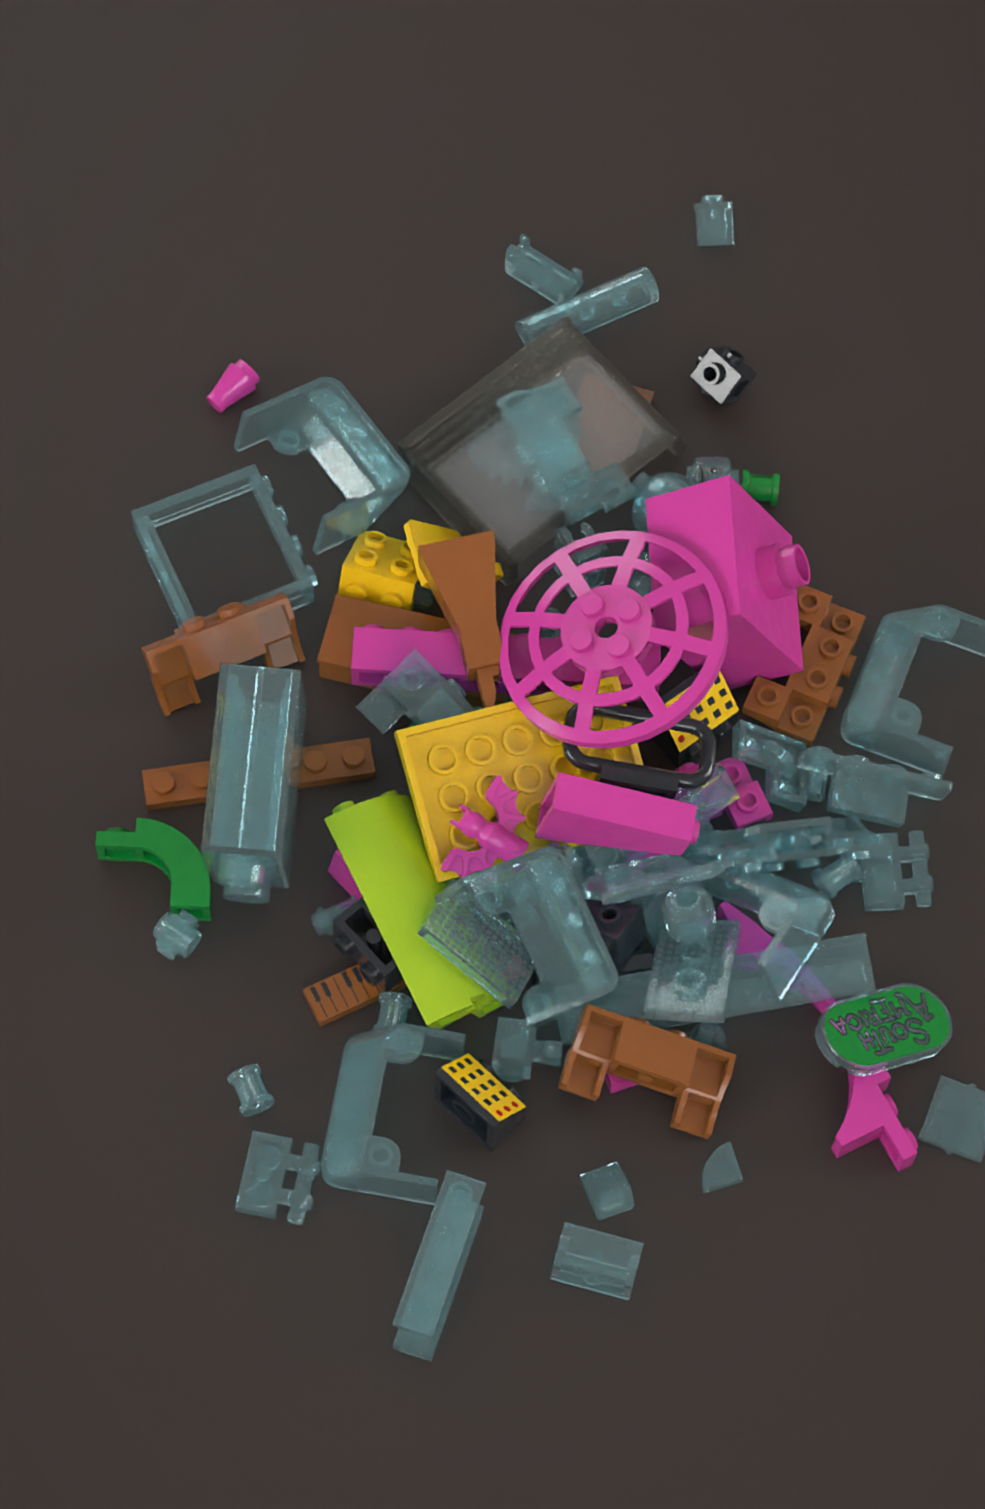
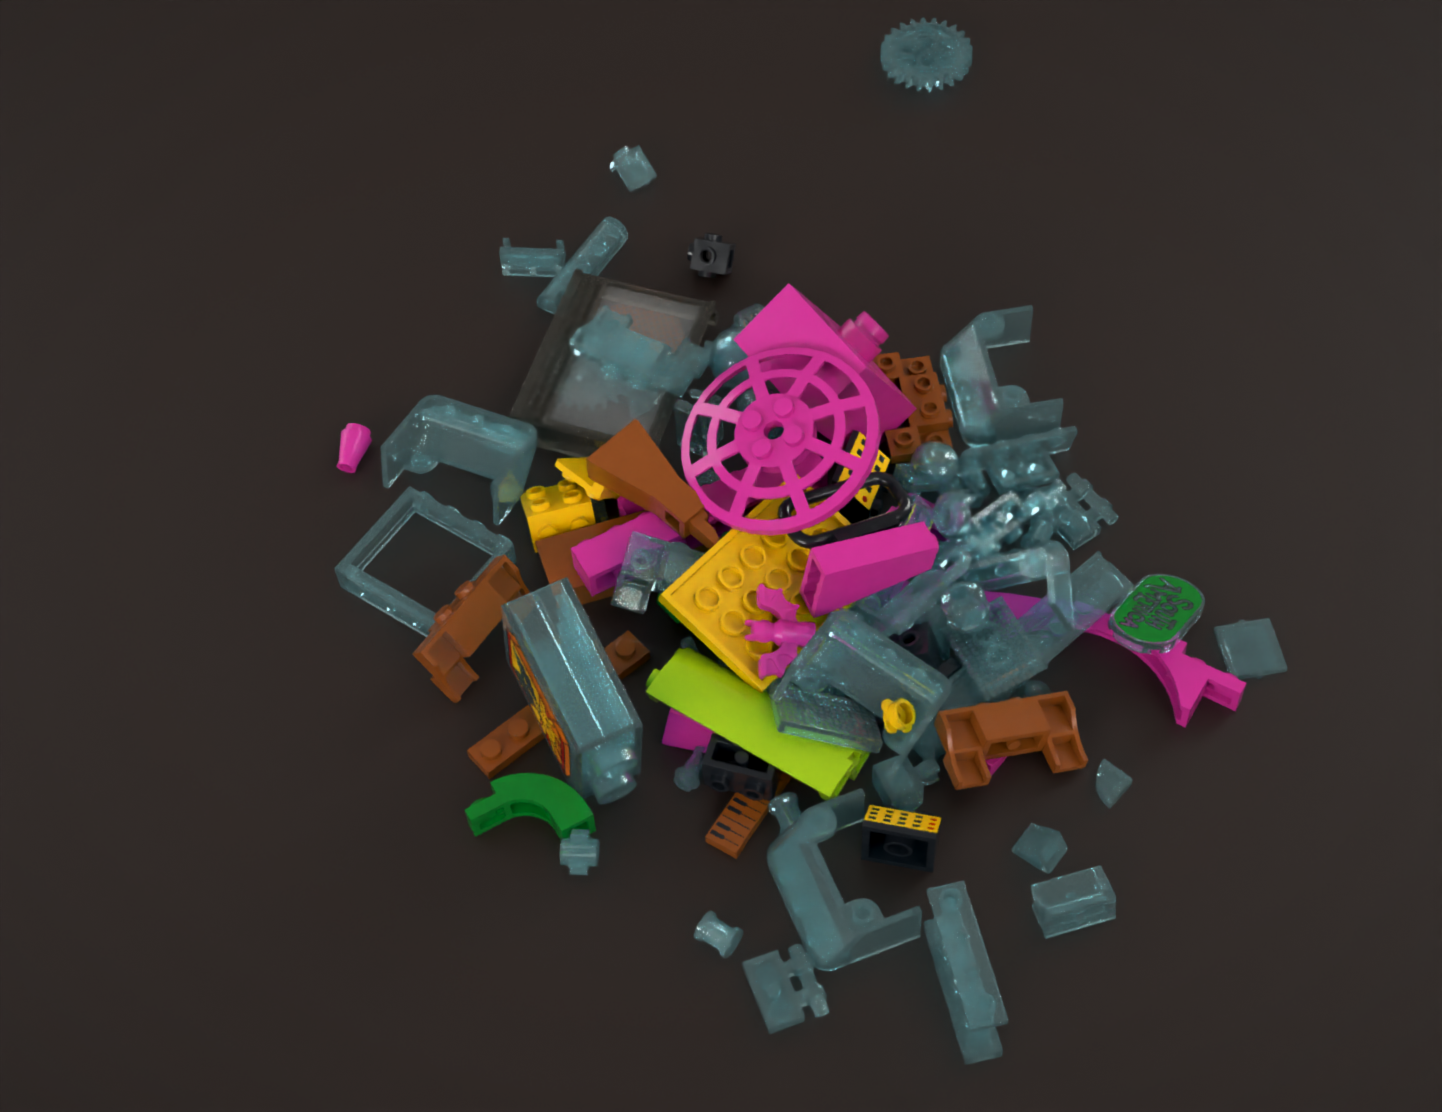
camera: 25 degrees left, 10 degrees down
(557, 987) = (898, 715): none -> yellow plate
(745, 808) = (953, 513): none -> clear light blue hair
(777, 742) = (935, 463): none -> clear light blue hair

